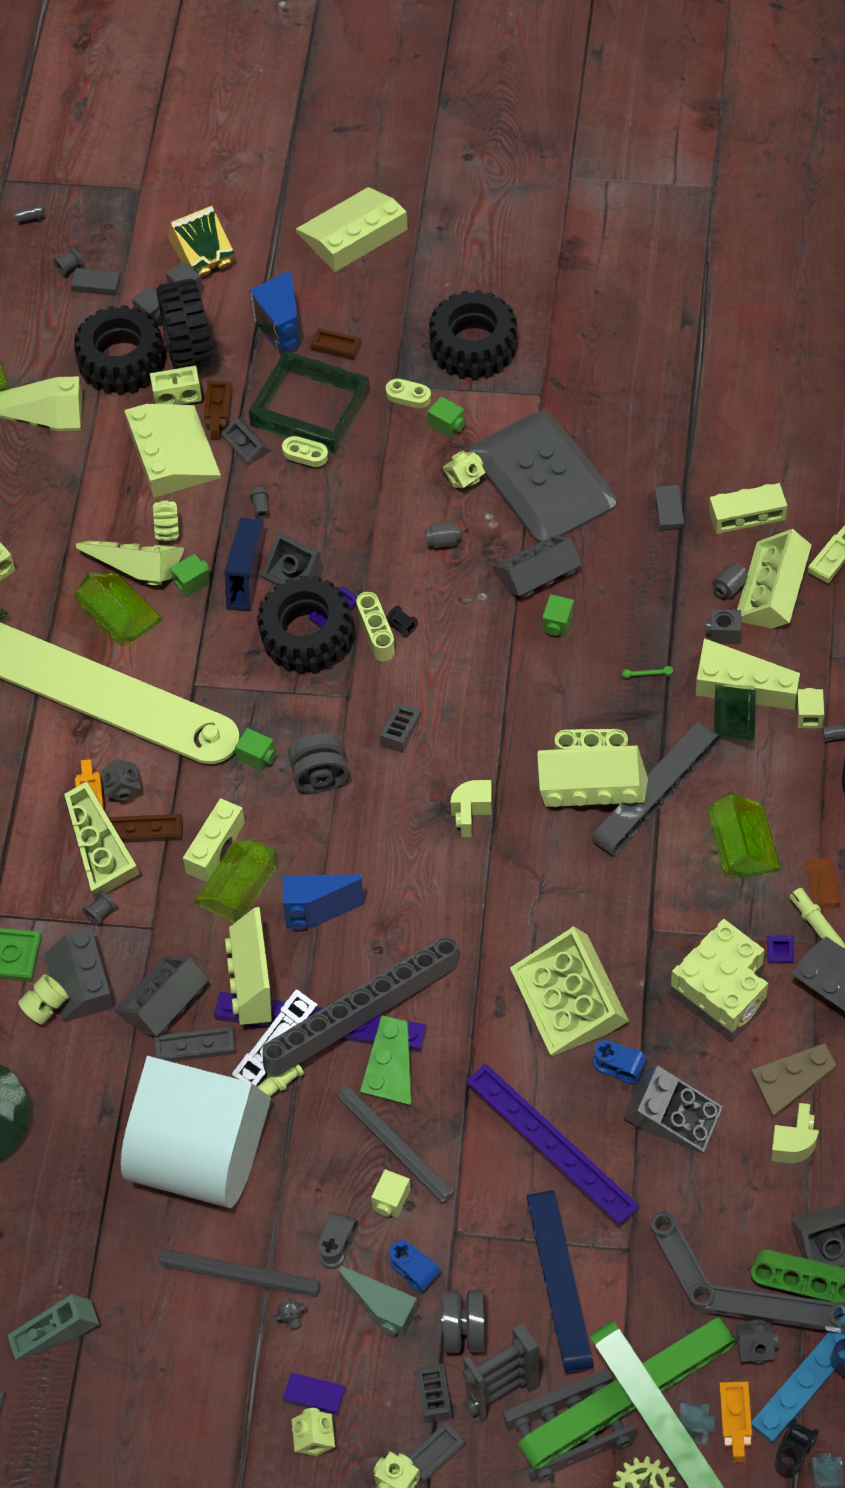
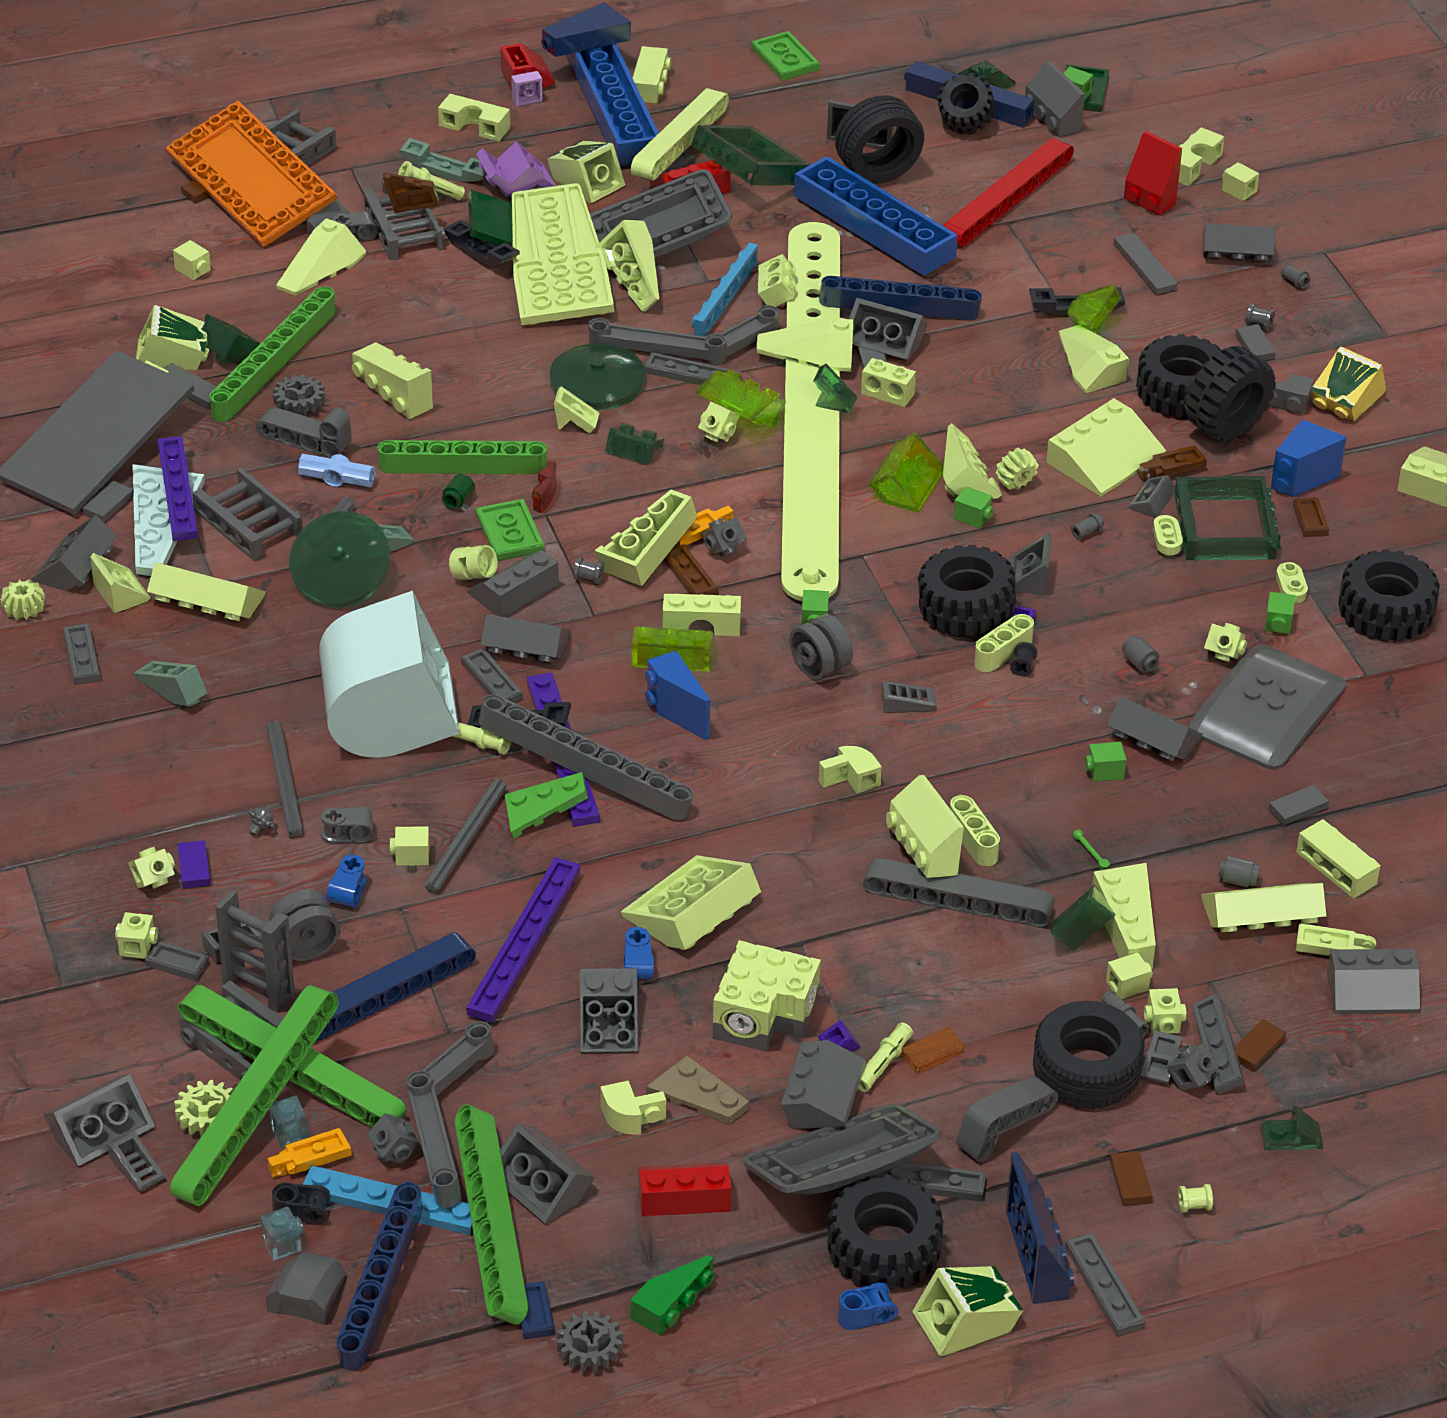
camera: 60 degrees right, 15 degrees down
(176, 386) = (1170, 424): yellowish green brick -> none
(244, 564) = (1010, 529): dark blue slope -> none
(249, 969) = (578, 676): yellowish green slope -> none
(385, 1305) = (301, 867): sand green slope -> none
(724, 635) = (1181, 884): dark grey brick -> none
(743, 836) = (945, 972): clear neon green slope -> none

